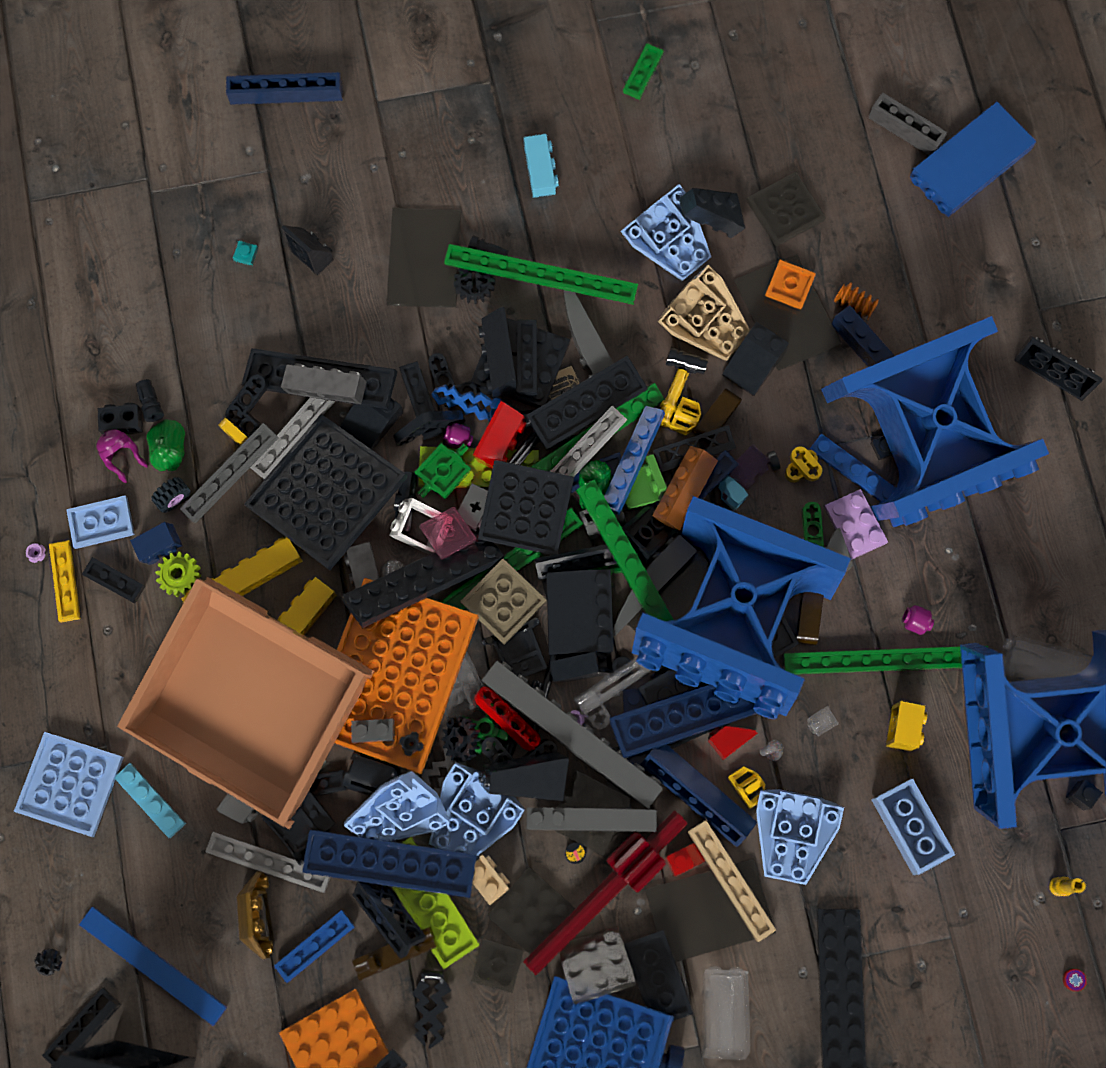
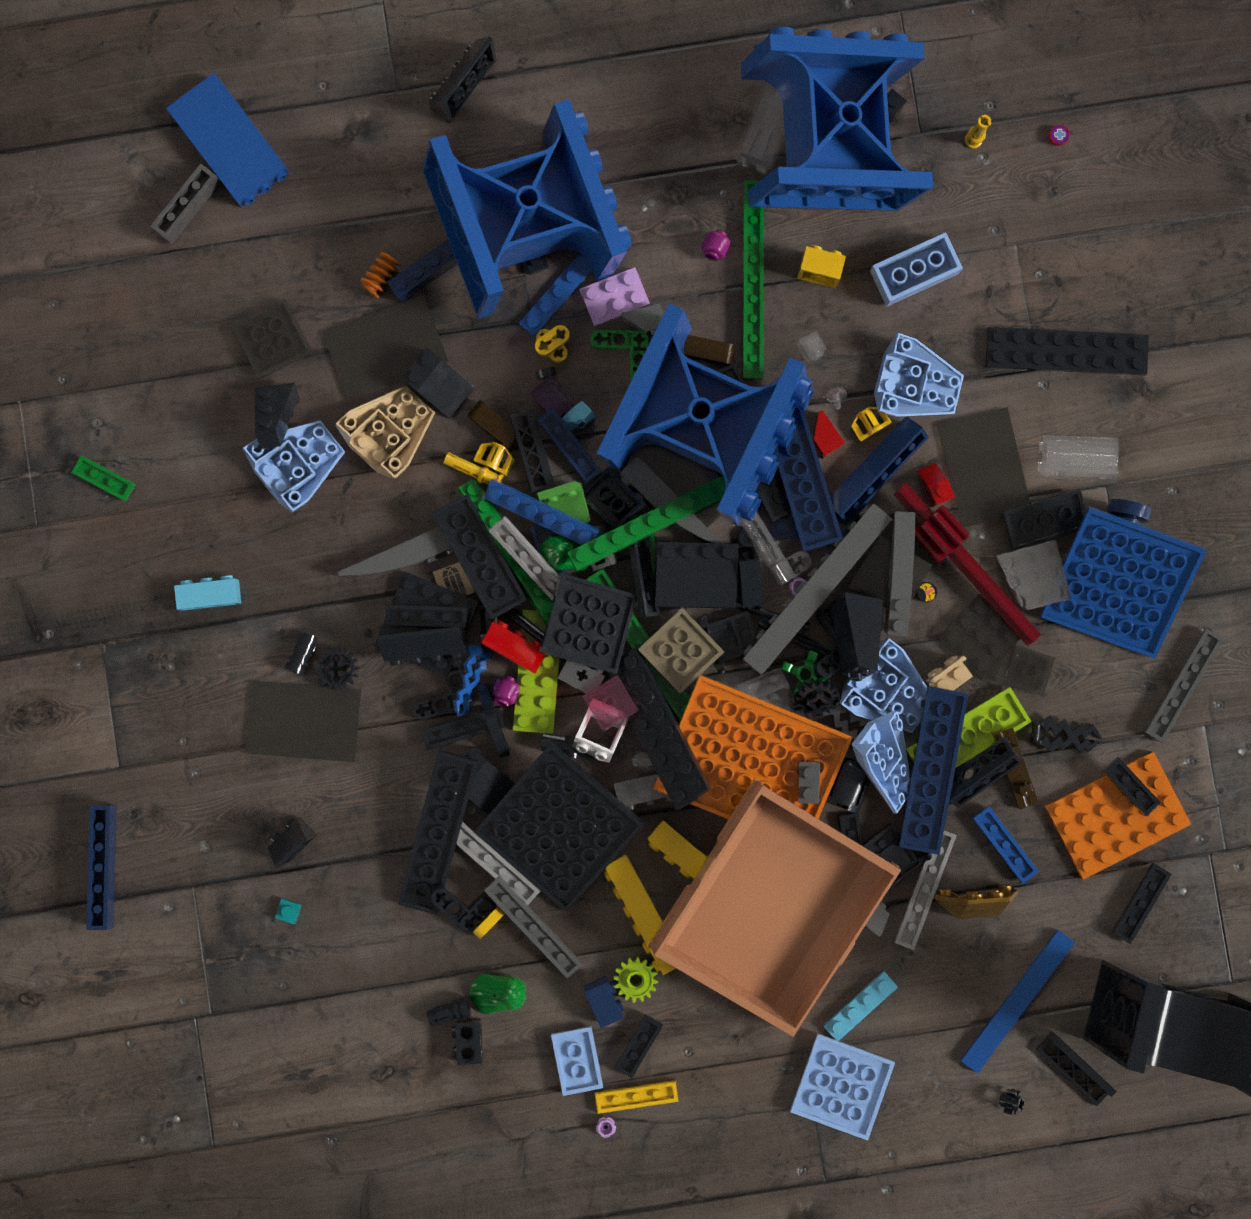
camera: 90 degrees left, 10 degrees up
(112, 441) = (497, 1049): magenta hair -> none
(170, 494) = (554, 987): black wheel -> none
(324, 383) = (449, 825): flat silver brick -> none
(405, 742) = (830, 747): black plate -> none
(443, 471) = (543, 707): green plate -> none
(508, 717) = (800, 653): red beam -> none
(541, 274) = (336, 598): green plate -> none
(686, 483) = (575, 462): dark orange brick -> none
(689, 362) = (436, 451): black axle -> none
(731, 881) = (959, 445): tan plate -> none
(790, 284) = (358, 340): orange plate -> none

